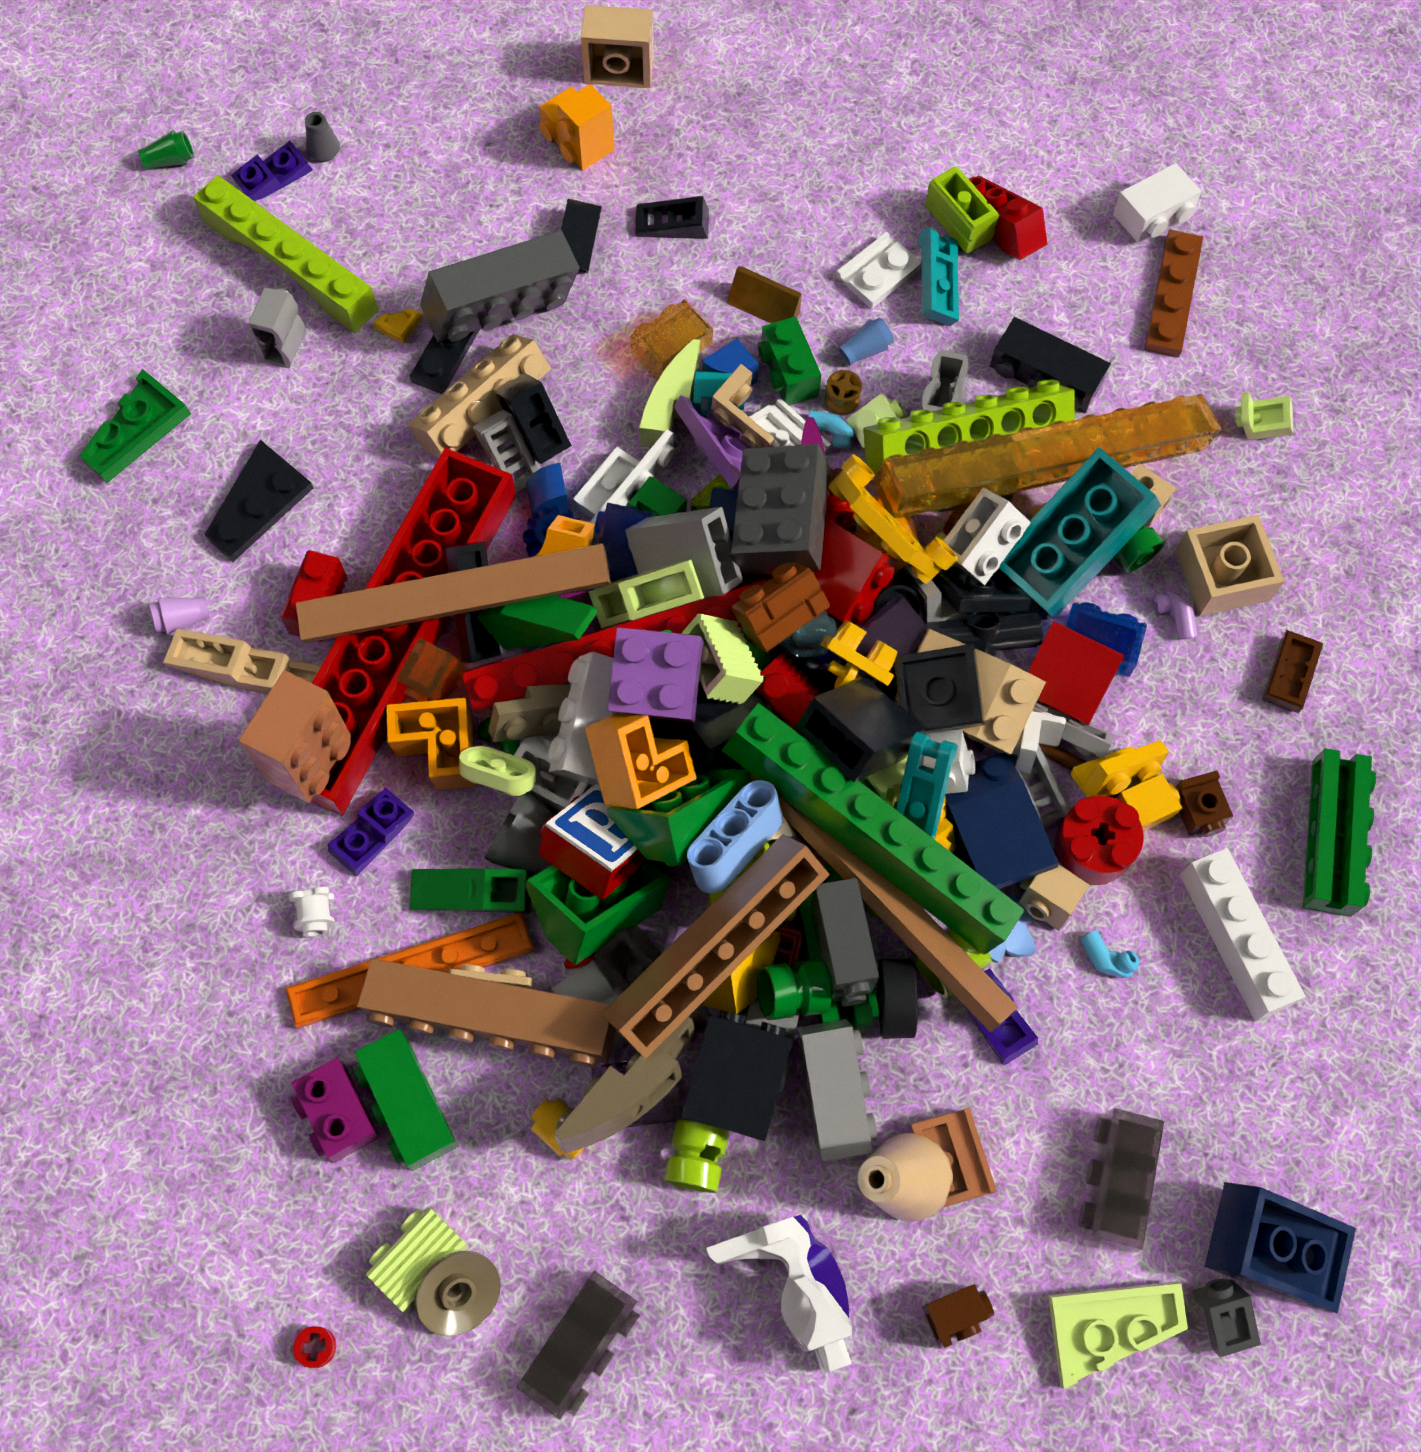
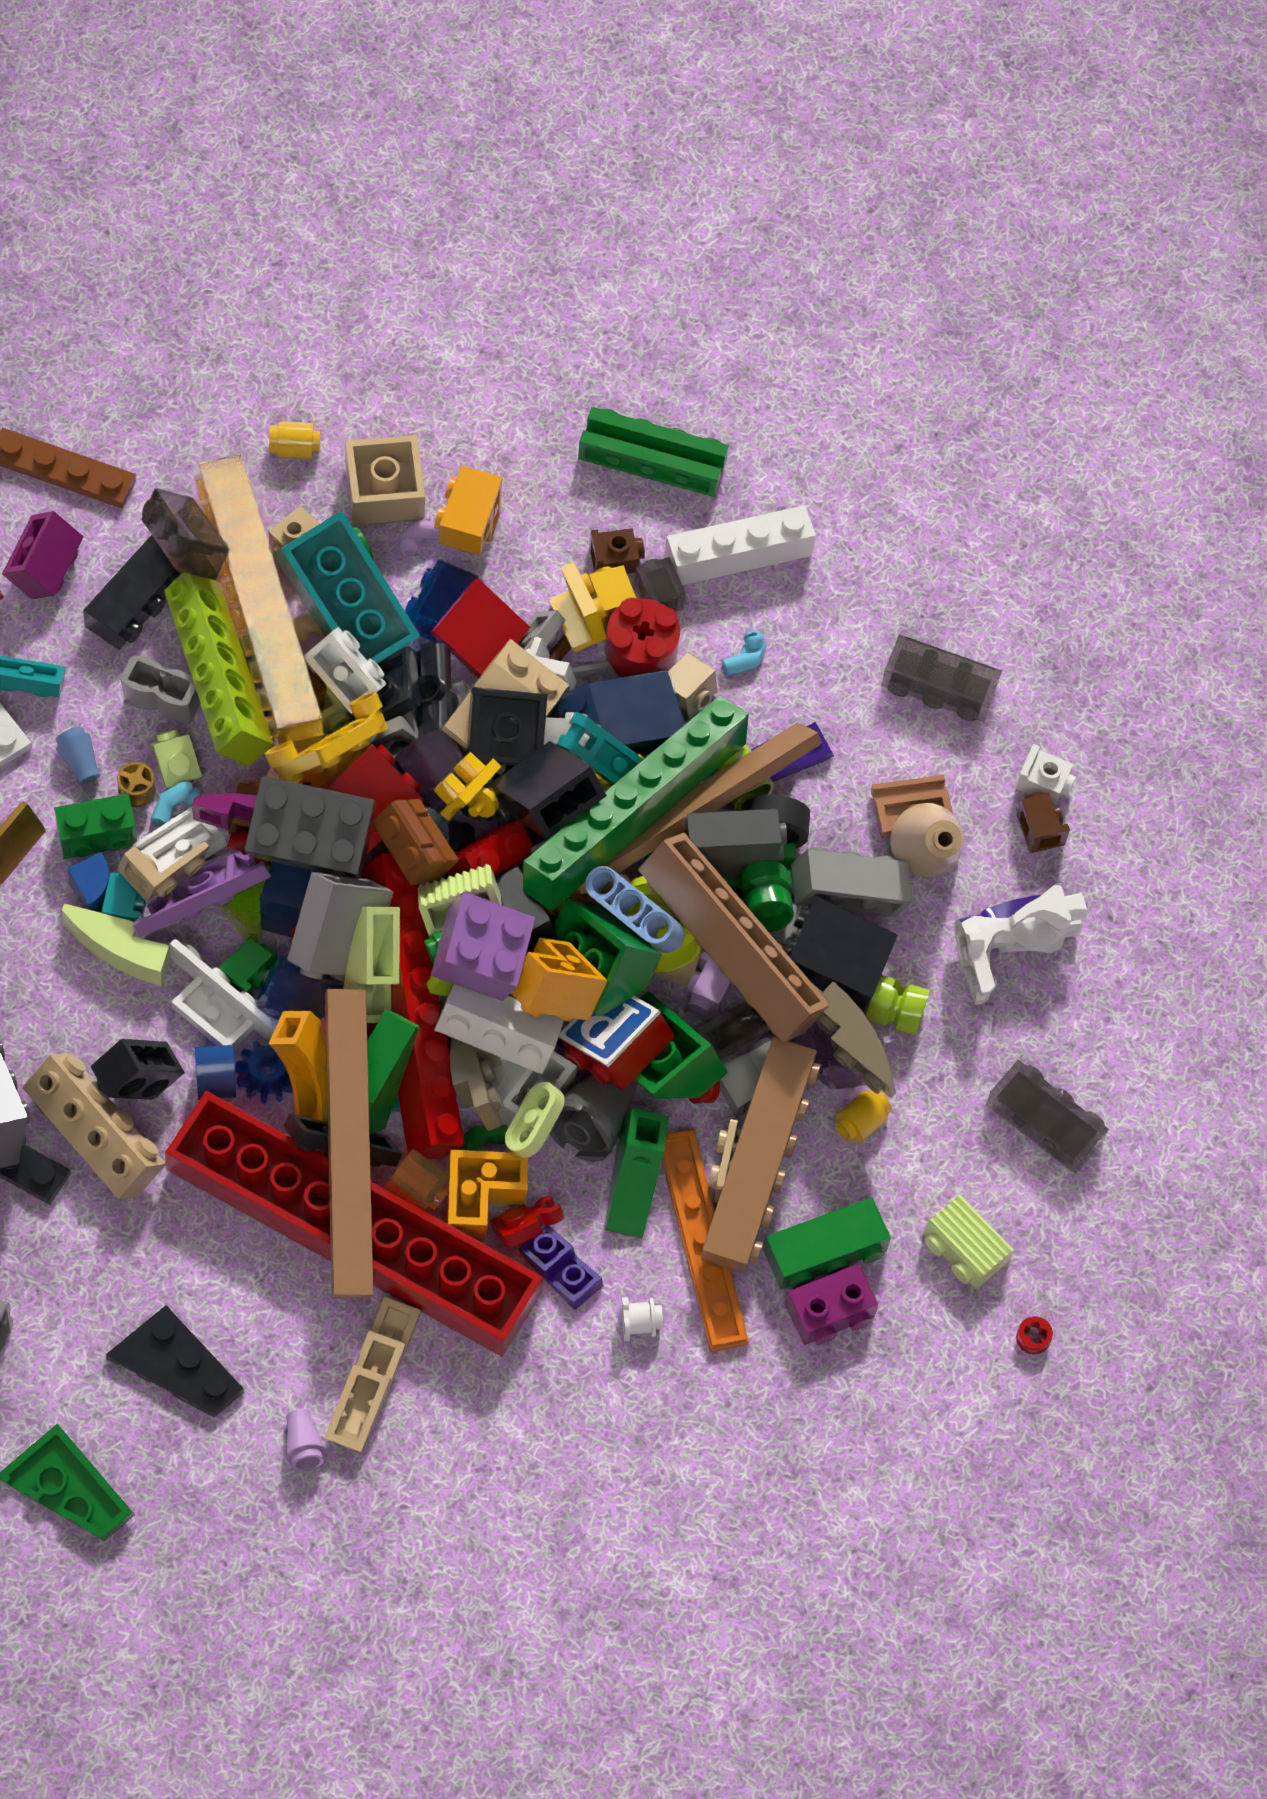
camera: 90 degrees left, 5 degrees down
(296, 737) = (499, 1273): nougat brick -> none
(317, 578) = (303, 1302): red brick -> none
(412, 786) = (522, 1224): none -> red plate
(464, 1306) = (999, 1207): dark tan dish -> none
(491, 426) = (157, 1103): light grey slope -> none
(660, 341) = (48, 938): clear yellow brick -> none
(1014, 1298) = (1046, 775): none -> white brick
(1068, 282) = (43, 555): none -> magenta brick
(1112, 1323) = (1054, 709): yellowish green wing -> none
(1113, 383) = (184, 534): none -> clear smoke brick
(1169, 853) = (660, 582): none -> clear smoke brick
(1207, 643) = (470, 510): none -> light orange brick
(1228, 1316) = (1054, 622): dark grey bracket -> none
(1256, 481) = (294, 440): none -> yellow brick
(1265, 417) = (224, 416): yellowish green bracket -> none
(1280, 1246) = (1002, 575): dark blue slope -> none
(1292, 671) = (492, 453): reddish brown plate -> none

